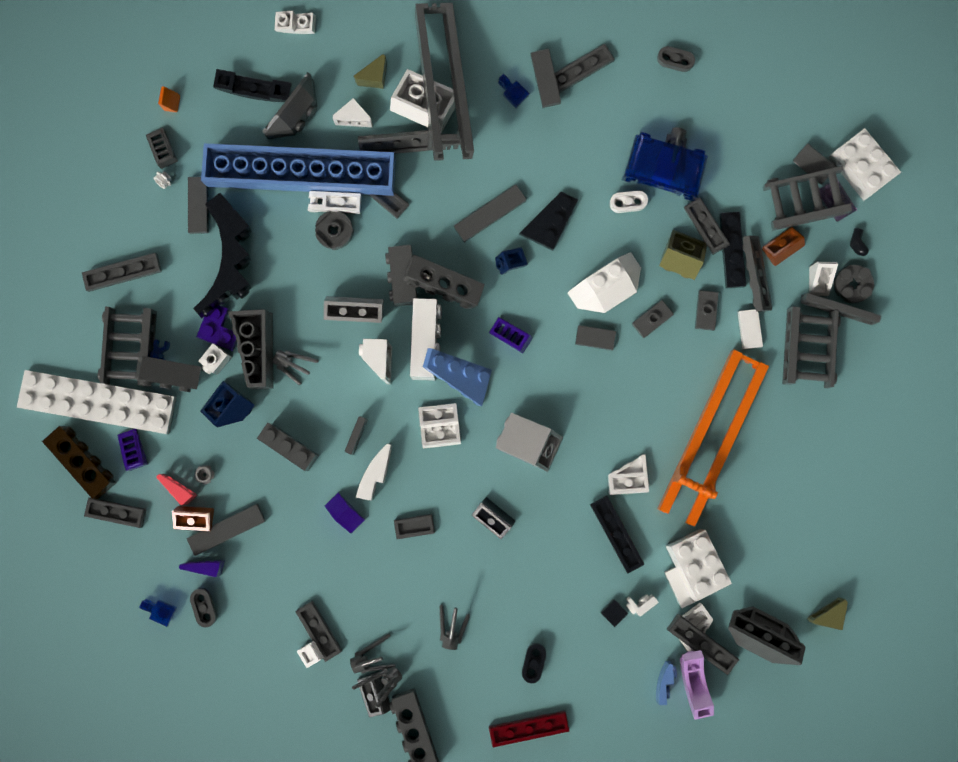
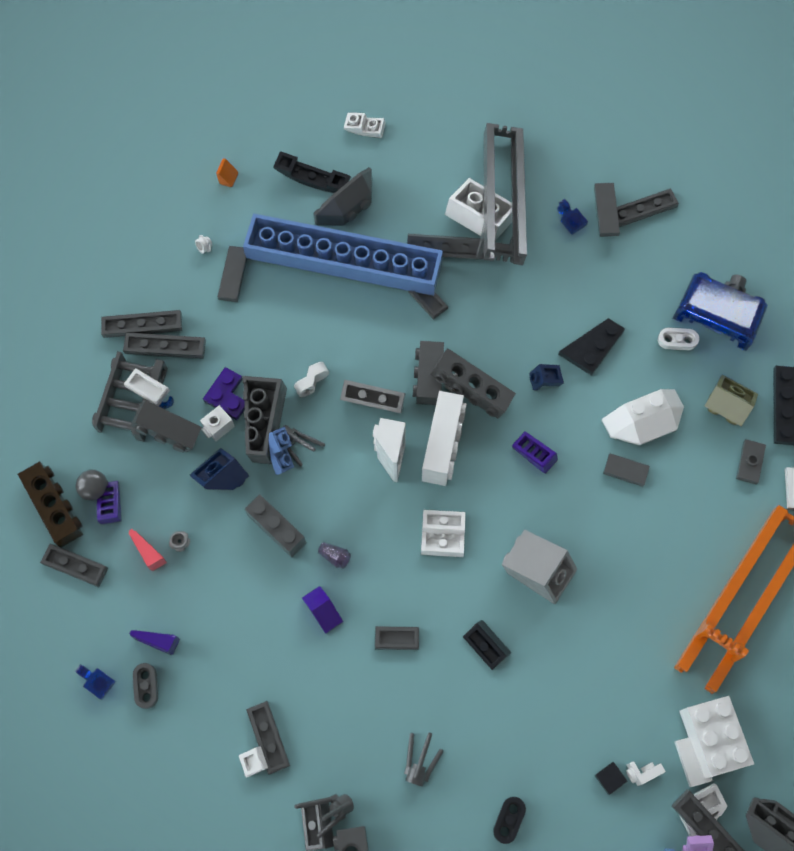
camera: 10 degrees right, 15 degrees down
(96, 402) = (84, 447): white plate -> none
(112, 437) = (91, 484): none -> dark grey hair
(141, 338) = (146, 387): none -> white tile
(148, 290) = (164, 345): none -> dark grey plate
(167, 160) = (213, 227): dark grey slope -> none
(192, 518) = (156, 585): dark orange slope -> none
(226, 530) = (189, 604): dark grey tile -> none
(234, 257) = (260, 326): black arch -> none
(275, 373) = (278, 445): none -> medium blue slope
(291, 307) = (315, 374): none -> white piece
(334, 219) = (368, 308): dark grey plate -> none
(335, 202) = (372, 292): white plate -> none
(347, 463) = (335, 555): none -> cone
(352, 115) = (405, 214): white slope -> none
(356, 435) = (351, 526): dark grey tile -> none
(361, 663) = (308, 782): dark grey plant -> none
(373, 74) = (433, 180): olive slope -> none
(375, 473) = (363, 571): white slope -> none
(460, 374) = (476, 479): medium blue wing -> none
(490, 213) = (530, 328): dark grey tile -> none
(617, 534) = (625, 686): black plate -> none
(630, 478) = (648, 626): white wing -> none
(652, 319) = (691, 461): dark grey plate -> none
(676, 56) = (742, 212): dark grey plate -> none
(706, 226) = (759, 375): dark grey tile -> none

